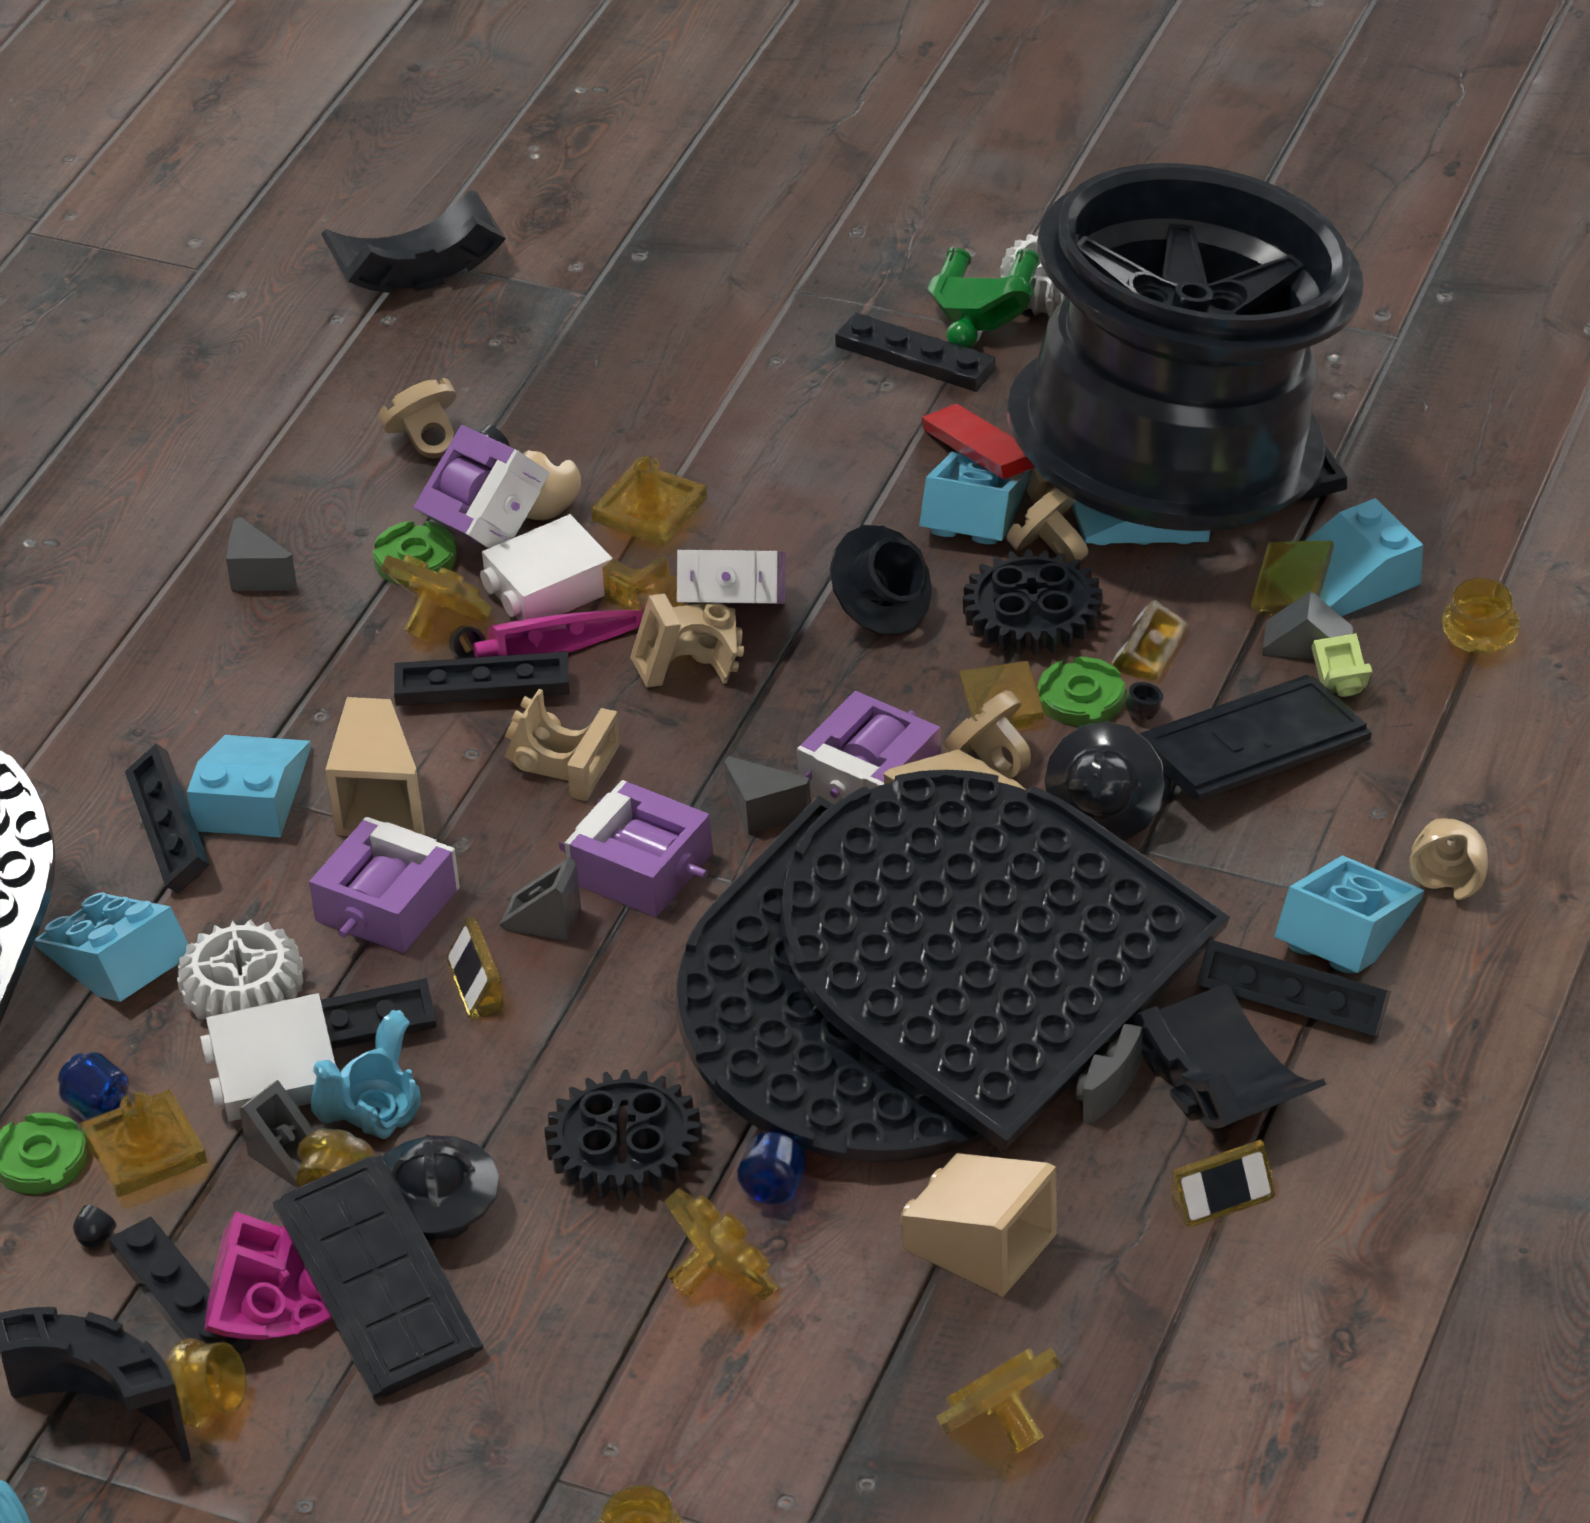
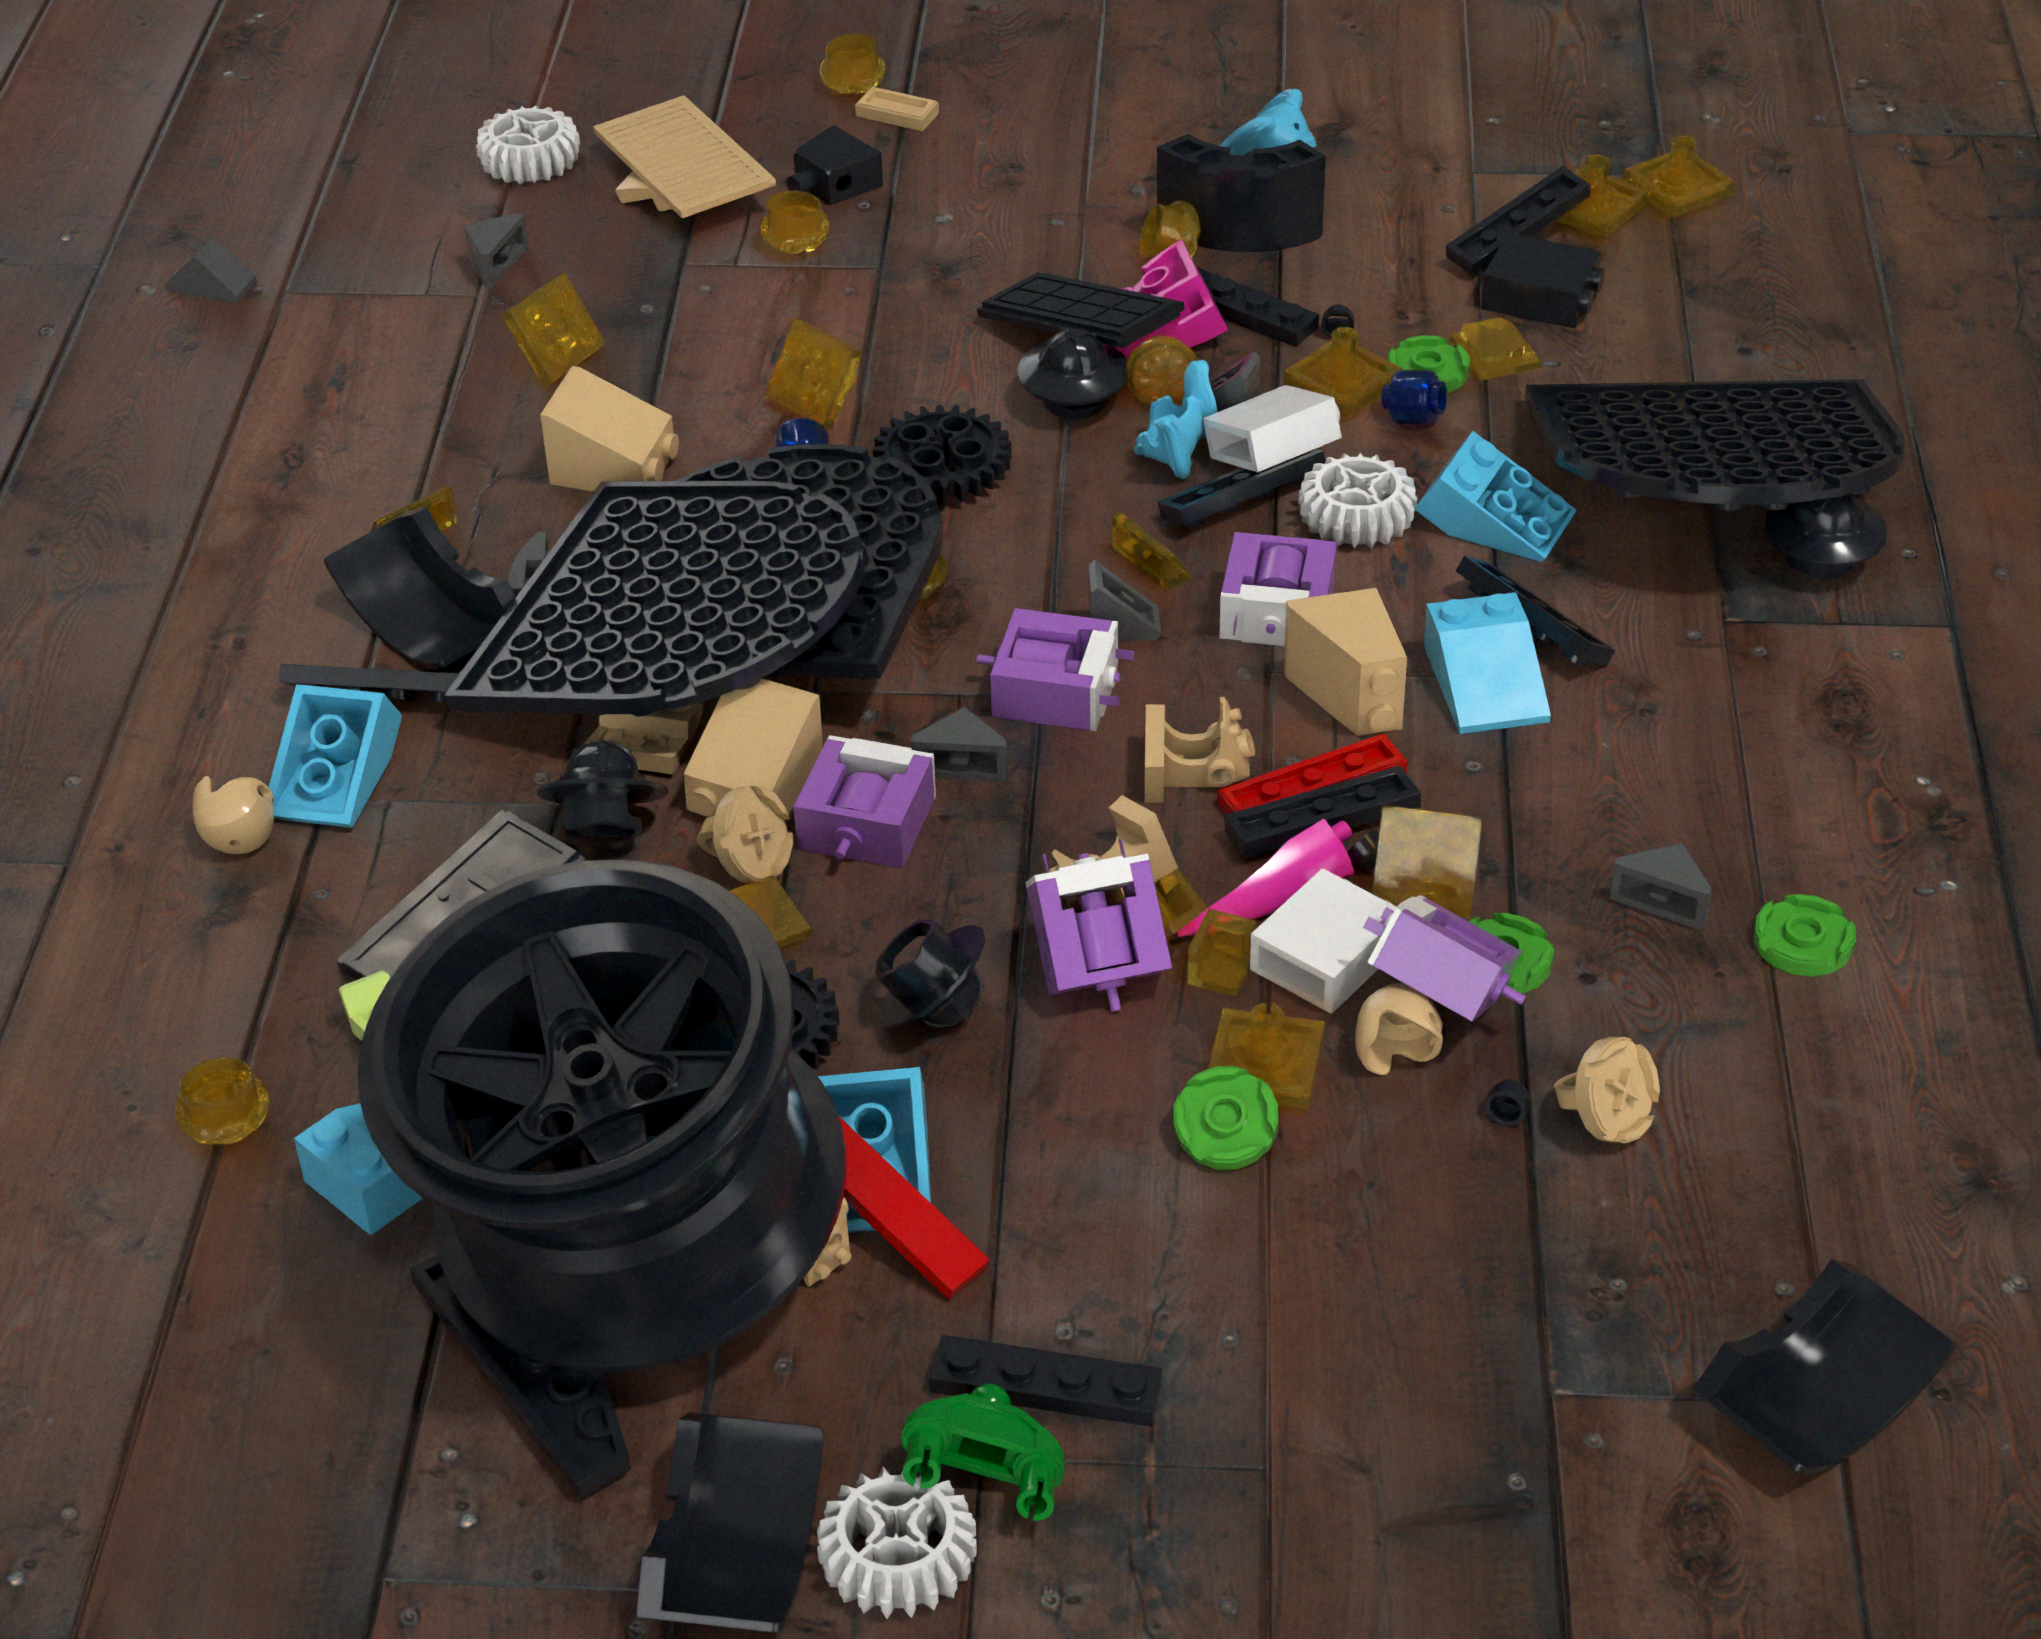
camera: 160 degrees right, 0 degrees up
(175, 520) = (1804, 935): none -> bright green tile
(463, 719) = (1314, 773): none -> red tile
(704, 464) = (1226, 1118): none -> bright green tile

